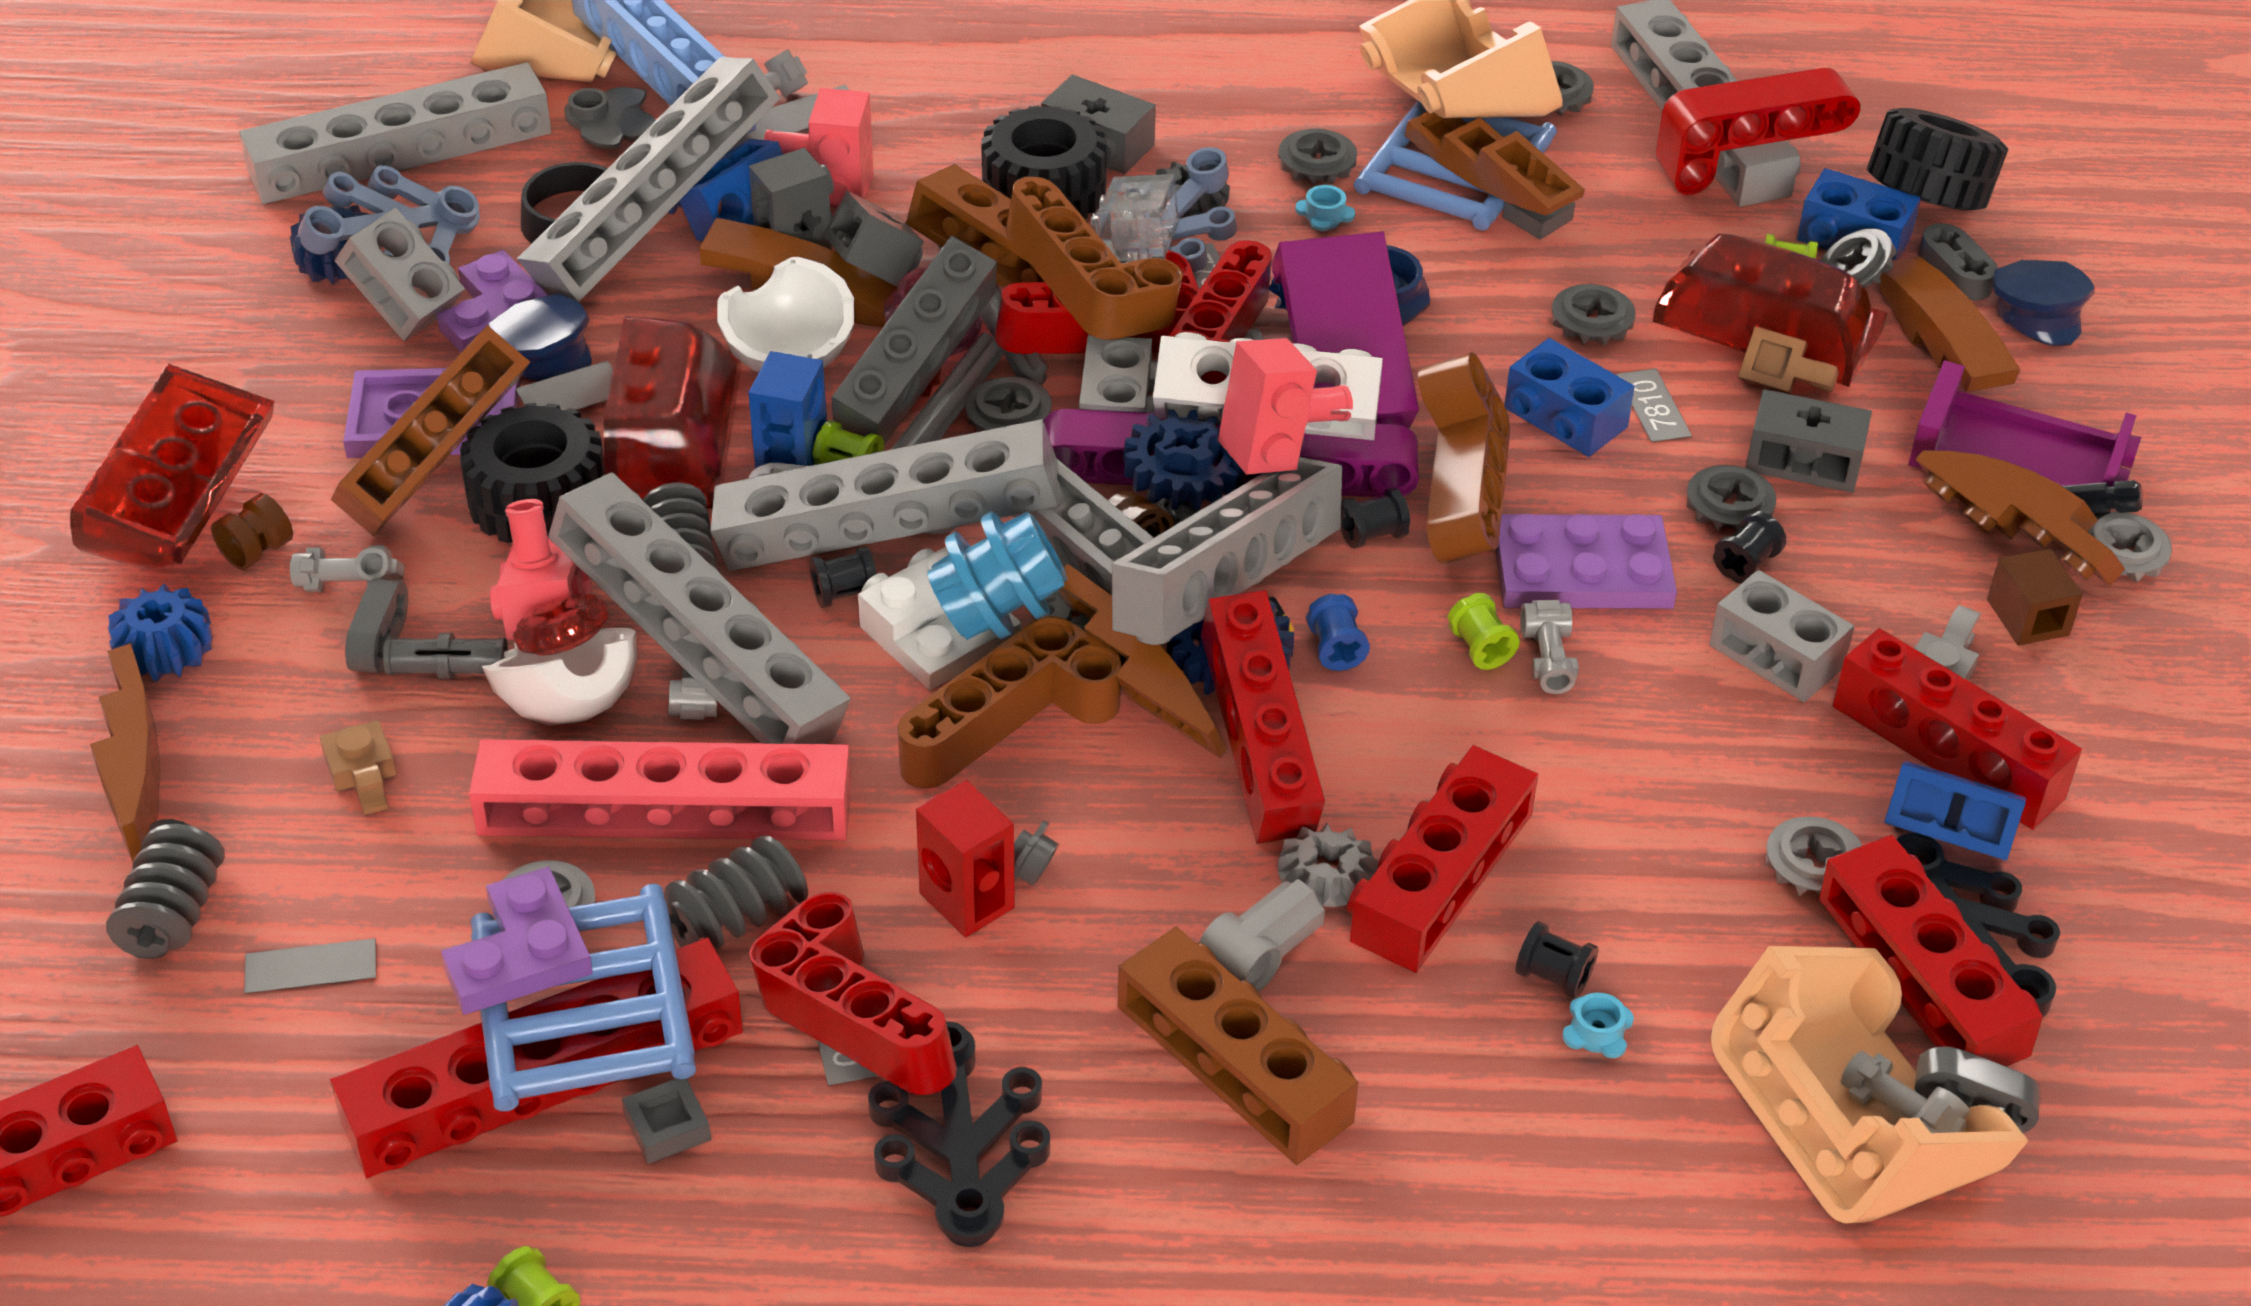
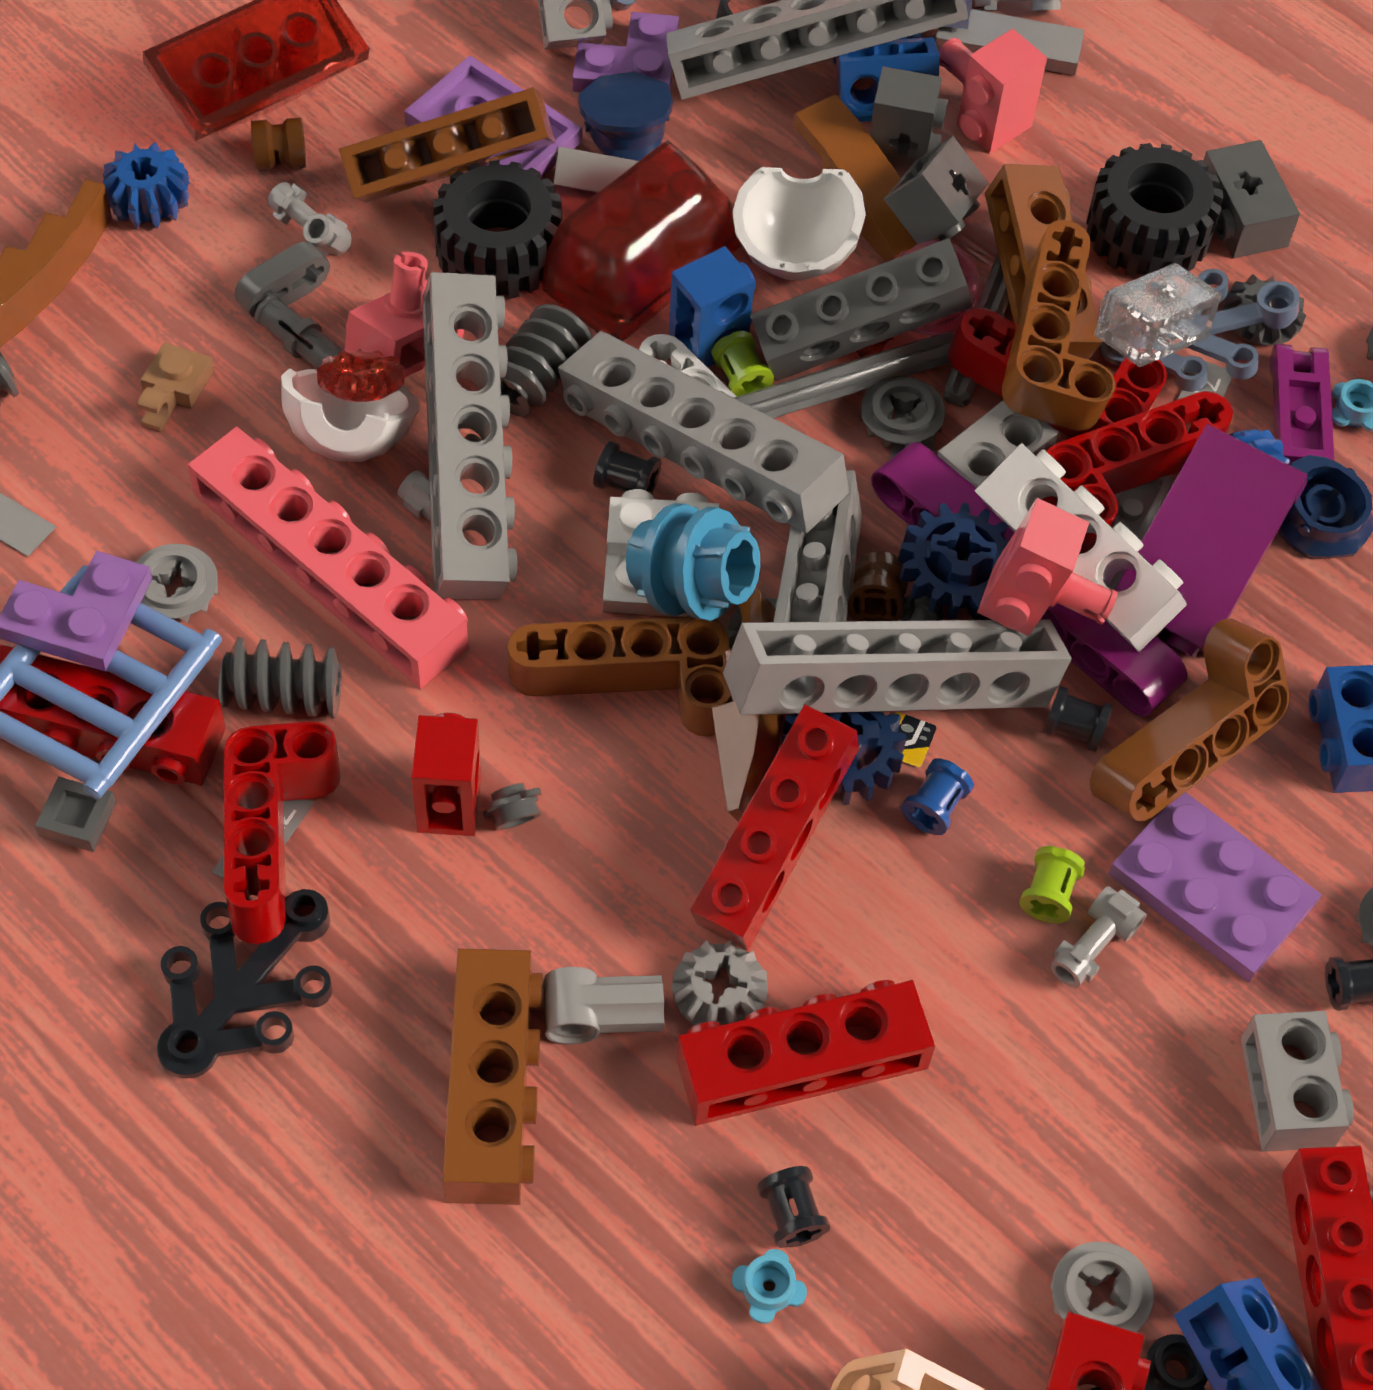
camera: 40 degrees right, 15 degrees up
(1276, 217) = (1302, 401): none -> magenta plate

